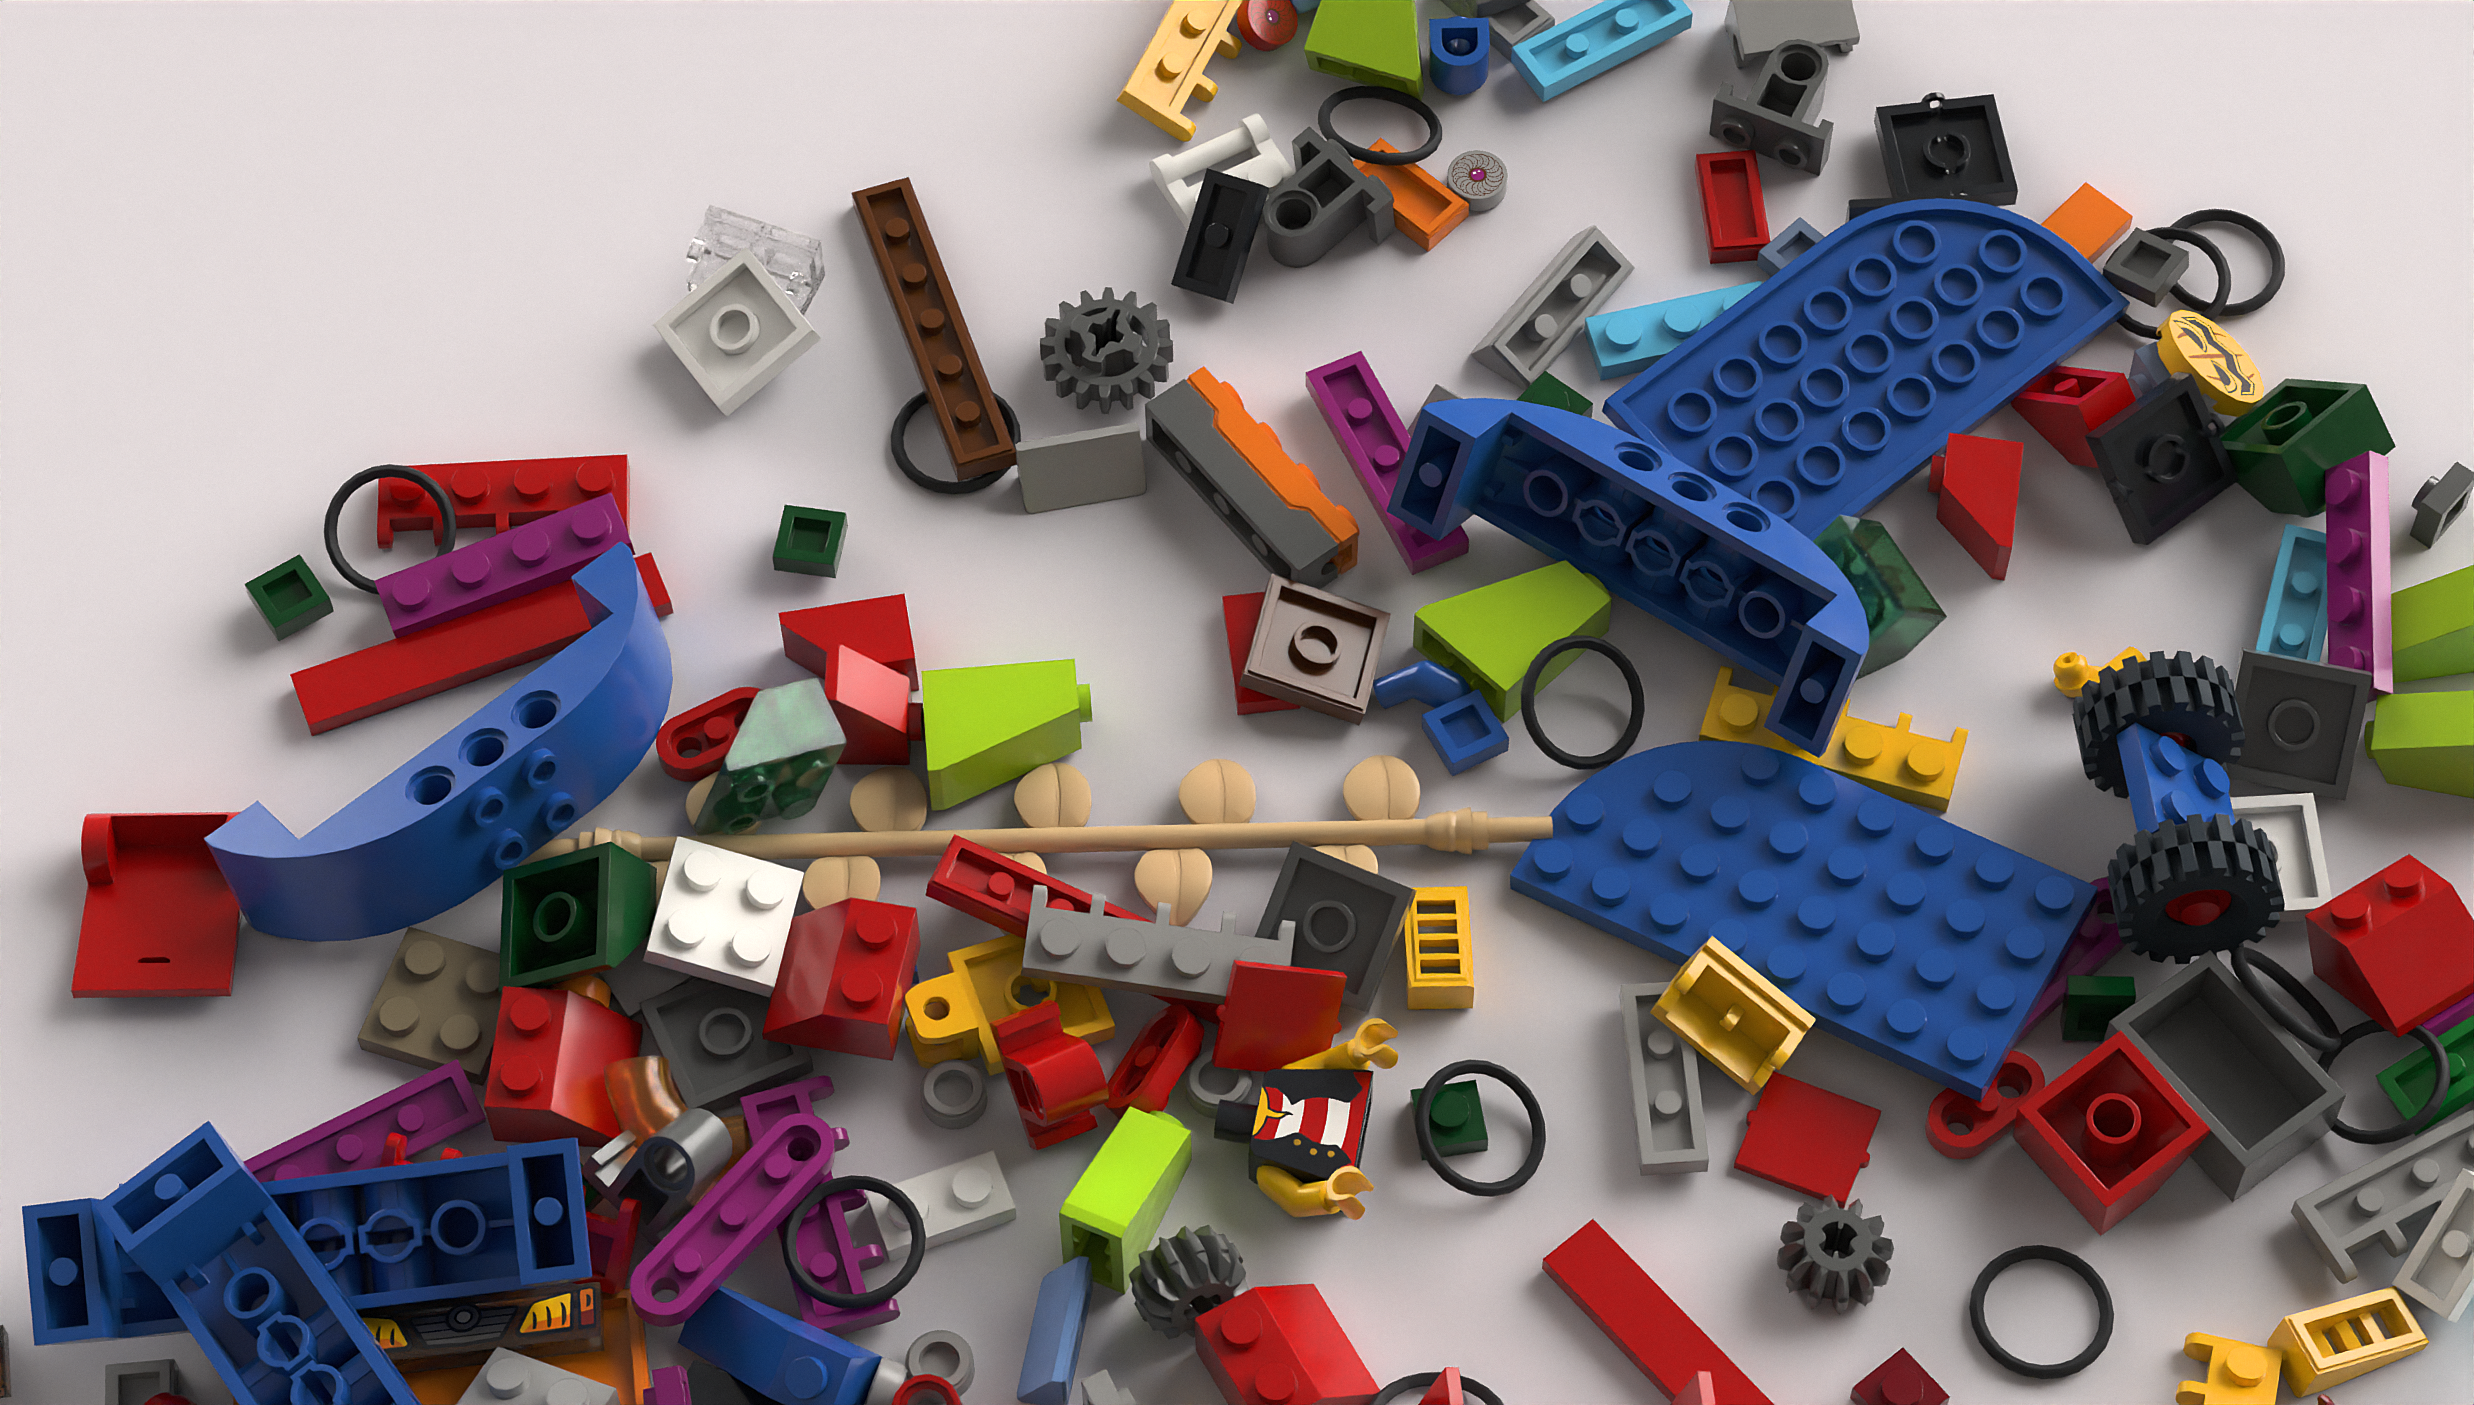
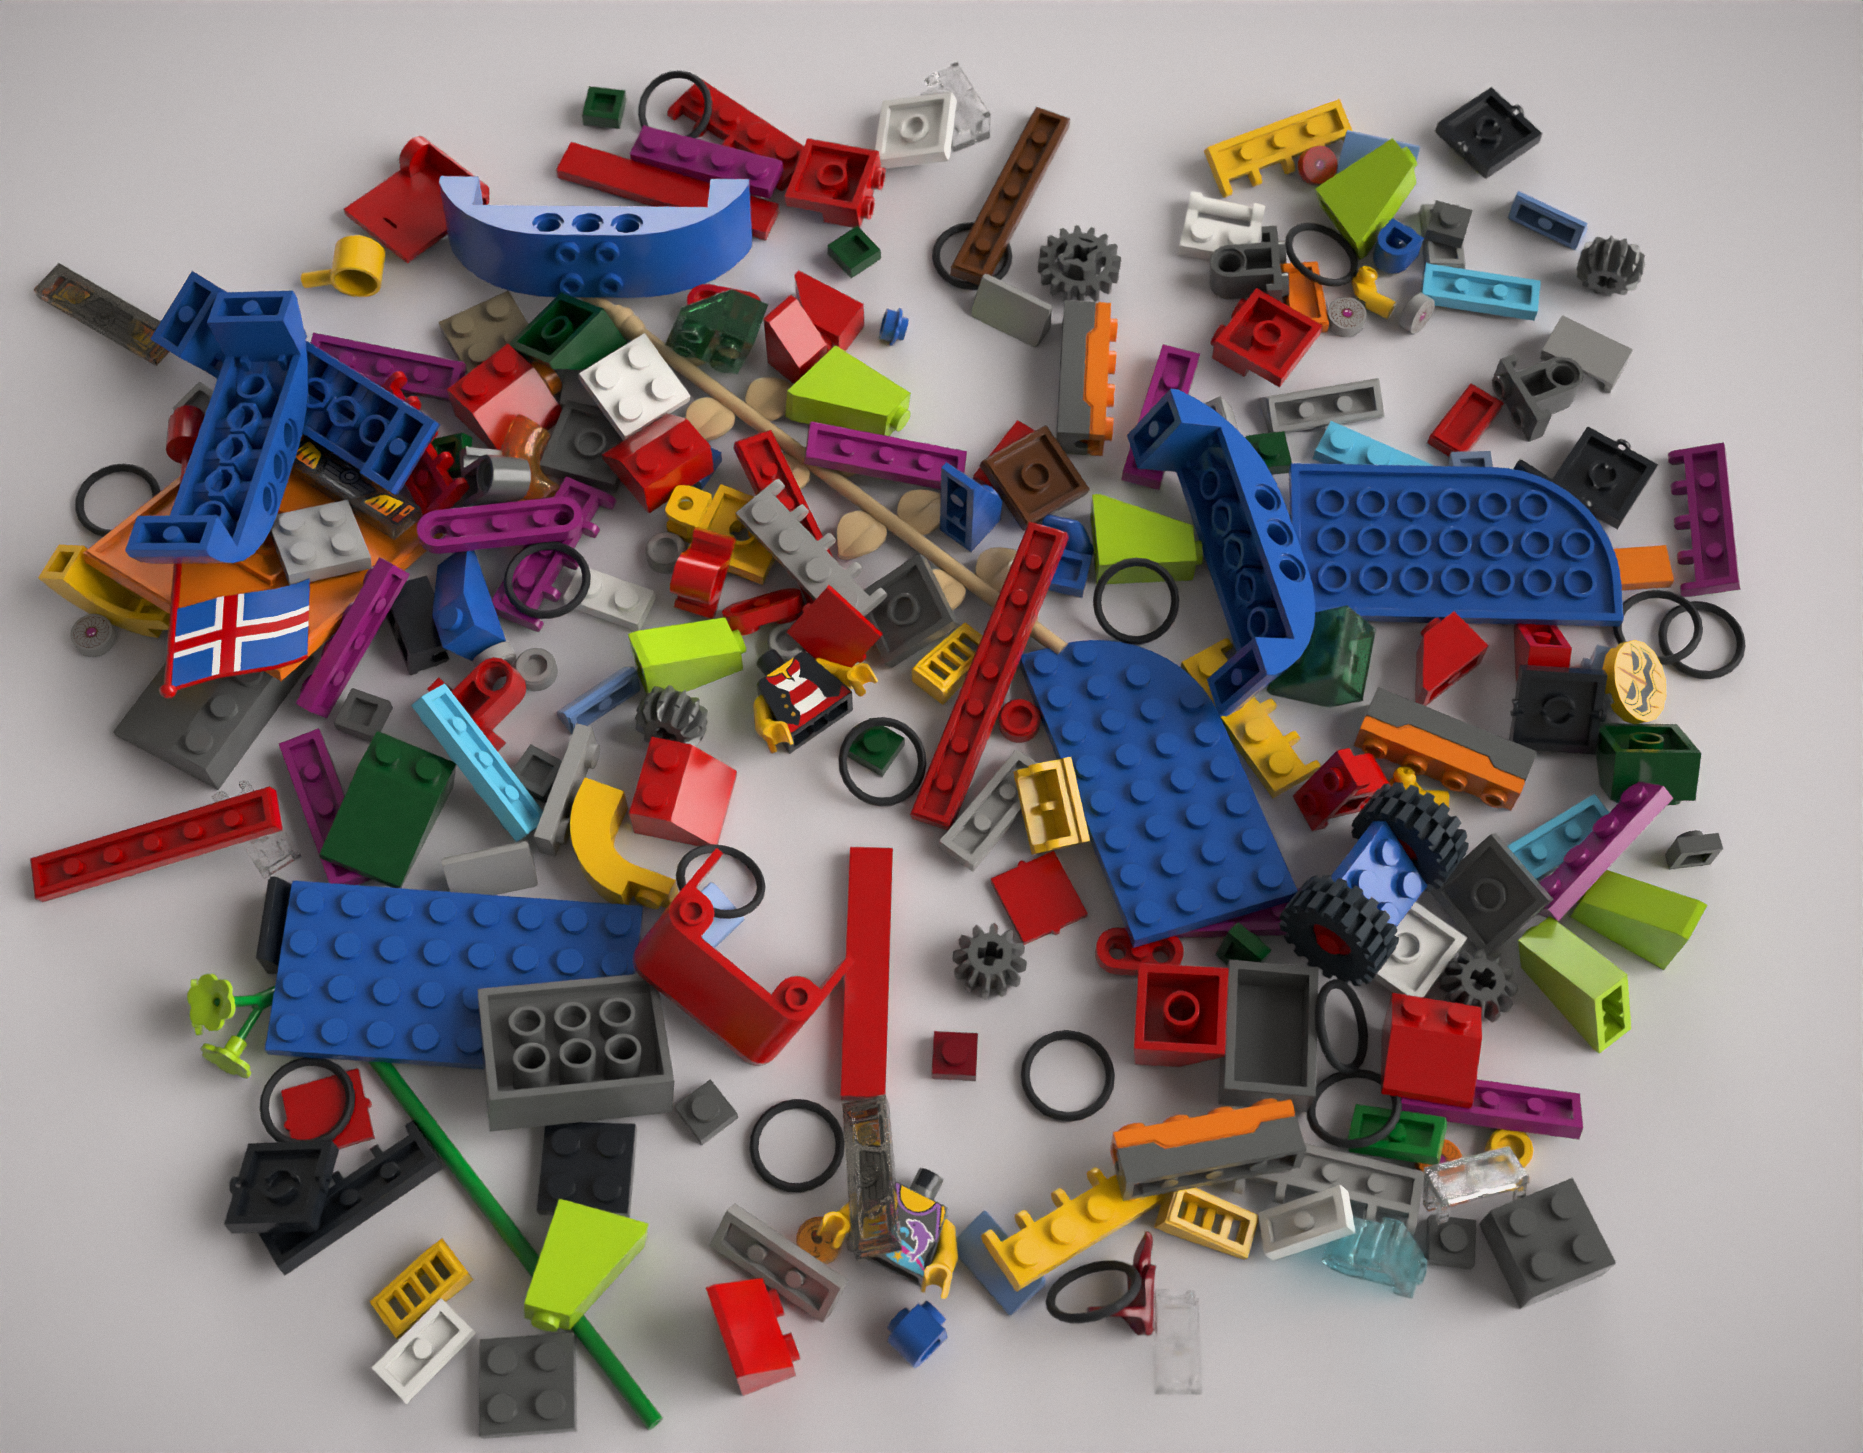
camera: 40 degrees right, 5 degrees up
(172, 1051) = (354, 270): none -> yellow piece
(703, 469) = (836, 182): none -> red plate
(952, 597) = (893, 326): none -> blue plate
(1116, 762) = (879, 455): none -> magenta plate
(1220, 236) = (1185, 249): black plate -> none
(1286, 747) = (967, 508): none -> blue slope
(1418, 276) = (1264, 338): none -> red plate
(1473, 135) = (1367, 294): none -> yellow arm
(1507, 926) = (989, 677): none -> red tile
(1557, 115) = (1417, 313): none -> light grey tile
(1581, 953) = (1019, 720): none -> red tile
(2021, 739) = (1339, 787): none -> red pin
(2082, 601) = (1445, 749): none -> piece
(2103, 116) = (1708, 518): none -> magenta hinge
(2146, 267) = (1649, 609): dark grey plate -> none
(2287, 1252) = (1207, 1148): none -> dark grey piece
(2372, 832) = (1469, 971): none -> dark grey gear

